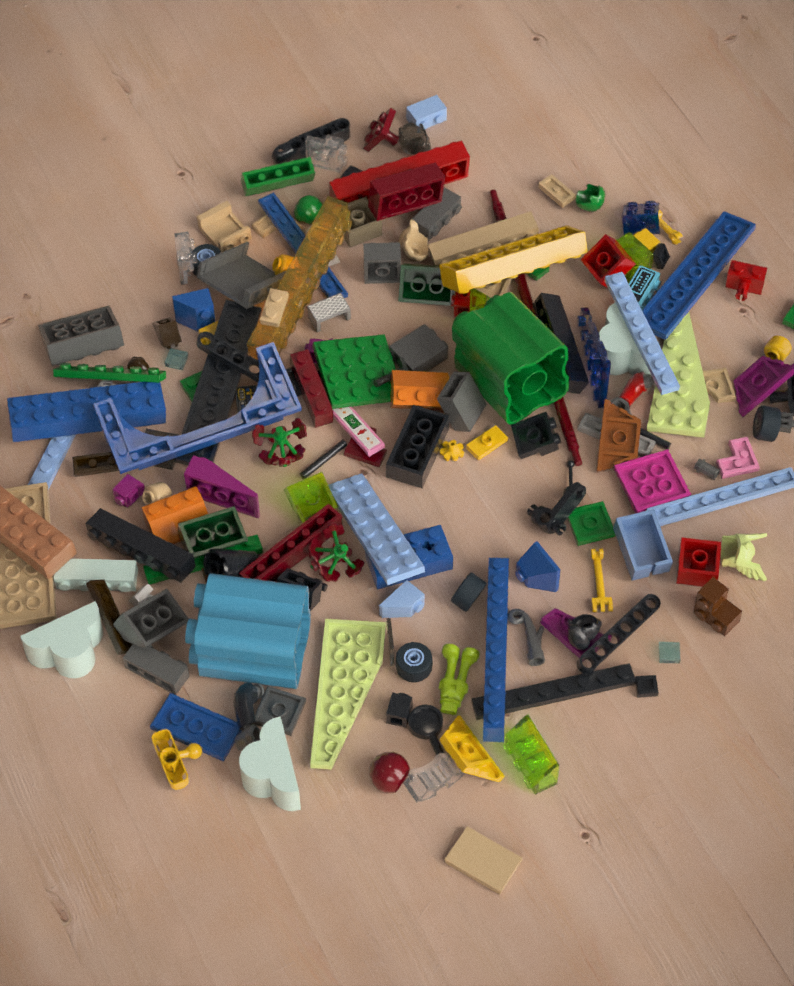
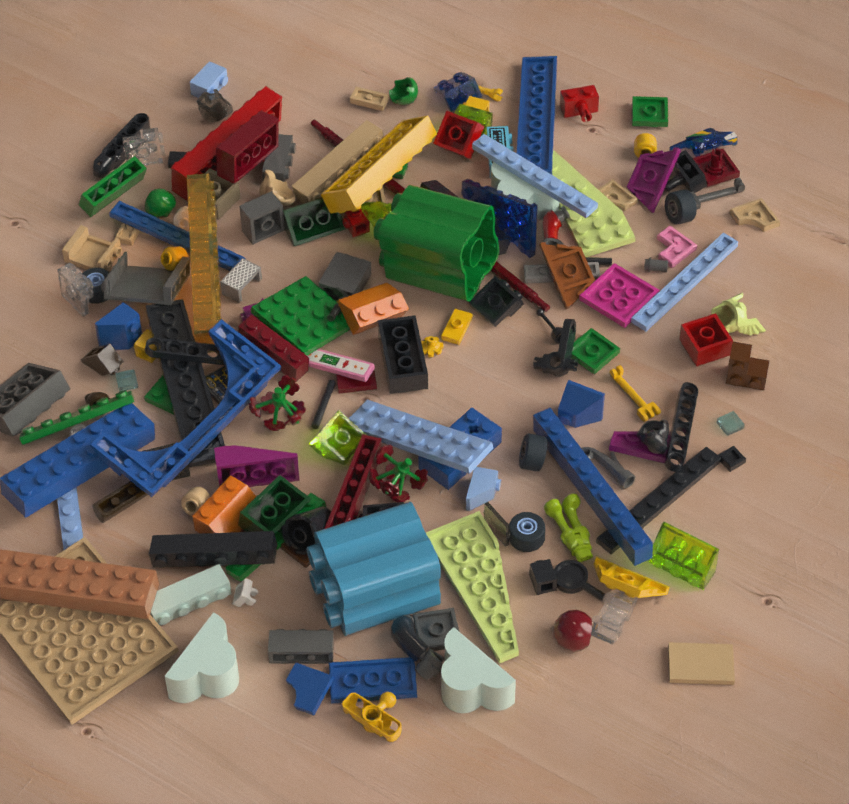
camera: 30 degrees left, 5 degrees down
(108, 613) = (233, 624): dark brown tile -> none
(128, 491) = (166, 510): magenta window -> none
(139, 707) = (309, 686): none -> blue tile
(151, 620) = (272, 607): dark grey slope -> none
(274, 307) = (201, 290): tan plate -> none
(381, 130) = (180, 110): dark red plate -> none
(461, 401) = (417, 298): dark grey brick -> none
(642, 544) = (651, 346): medium blue piece -> none
(661, 256) = (497, 113): black tile -> none

